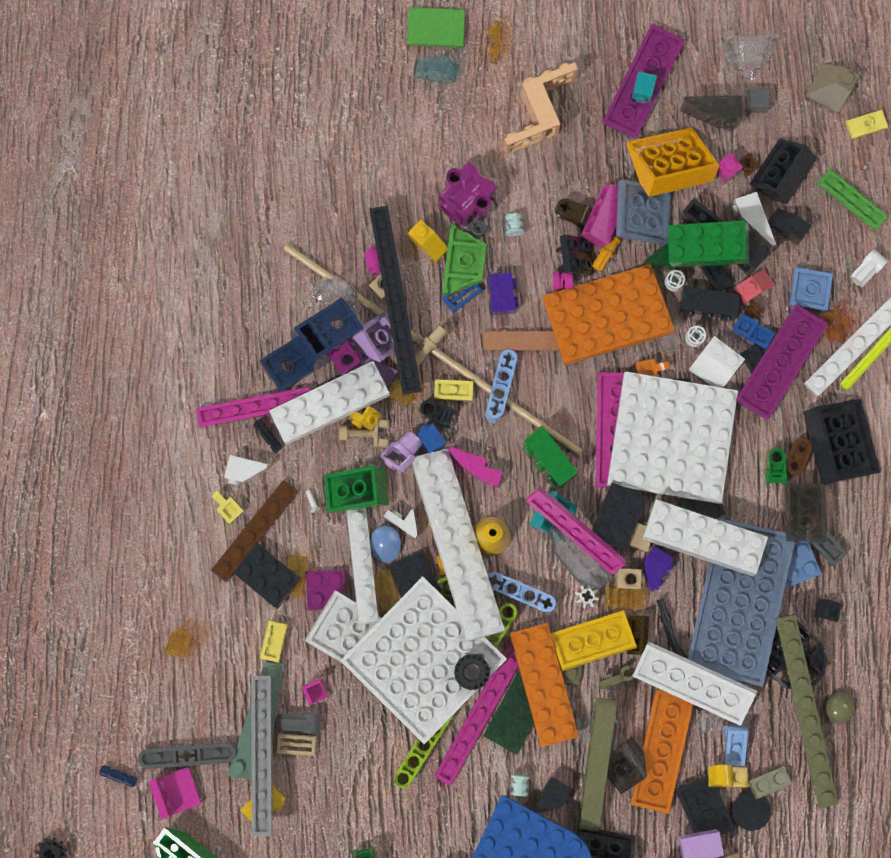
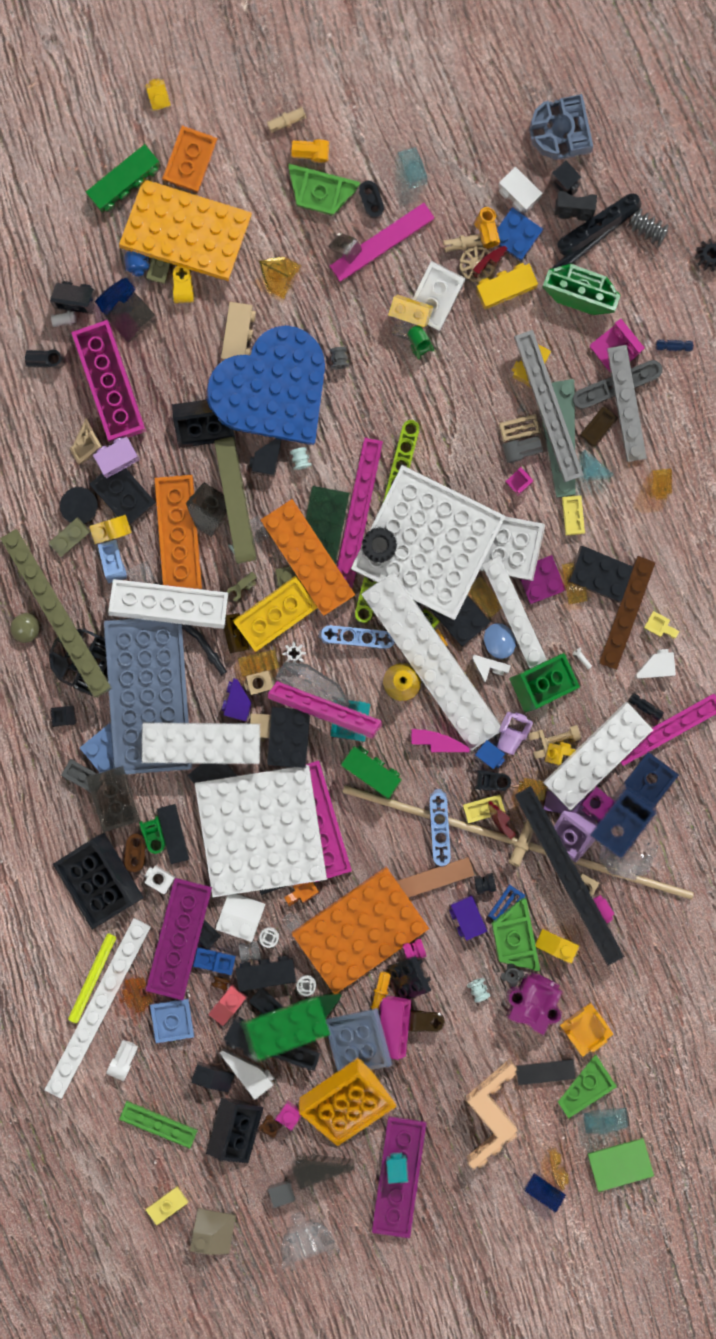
camera: 165 degrees right, 5 degrees up
(184, 734) = (626, 403): none -> light grey plate
(219, 720) = (598, 426): none -> dark brown tile
(239, 680) = (593, 469): none -> clear light blue slope
(426, 156) = (587, 1029): none -> light orange panel
(441, 373) = (500, 819): none -> dark red slope
(443, 104) = (587, 1088): none -> bright green wing
(476, 320) = (485, 883): none -> black wheel
(477, 131) = (545, 1072): none -> black tile
(514, 25) = (544, 1192): none -> clear blue slope
(722, 331) = (244, 950): none -> clear wheel
(756, 463) = (173, 834): none -> black tile
(774, 421) = (168, 879): none -> white brick

